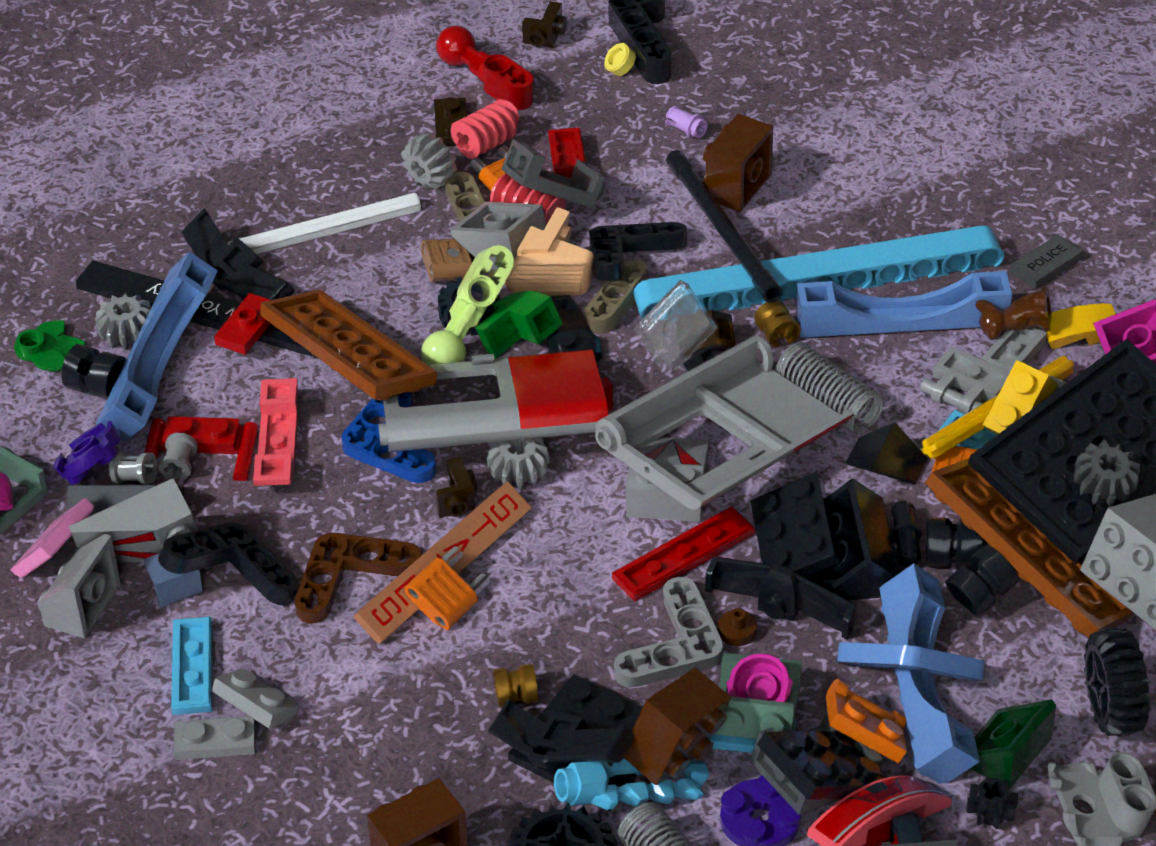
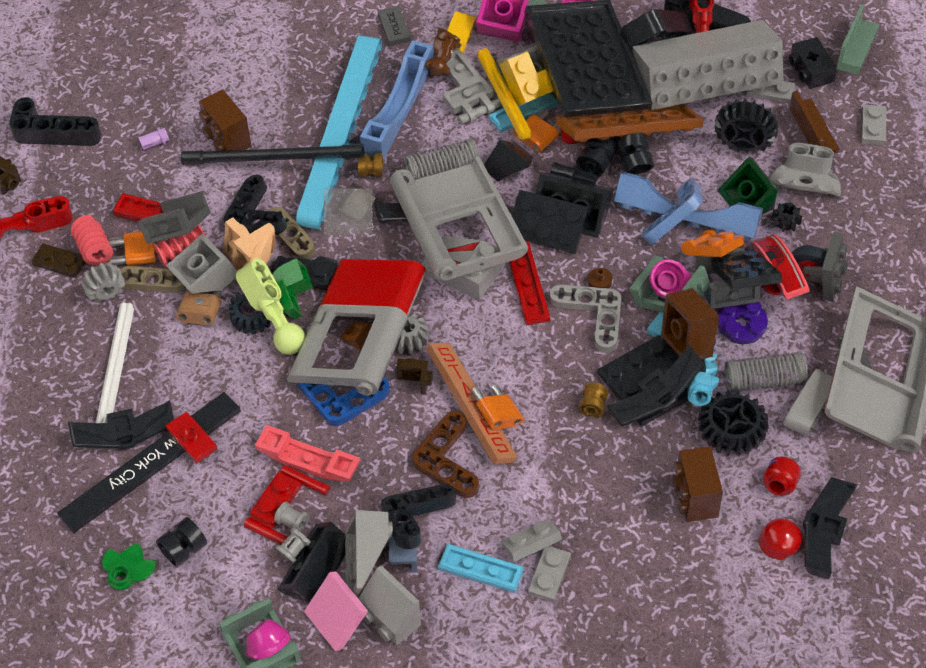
camera: 65 degrees left, 10 degrees up
(87, 450) = (277, 566): dark purple plate -> none
(122, 319) = (147, 511): light grey gear -> none
(139, 379) = (150, 464): medium blue arch -> none
(348, 344) = (264, 381): dark orange plate -> none
(620, 59) = (68, 148): light yellow tile -> none
(781, 592) = (592, 246): black plate -> none
(1106, 473) = (615, 60): dark grey gear -> none

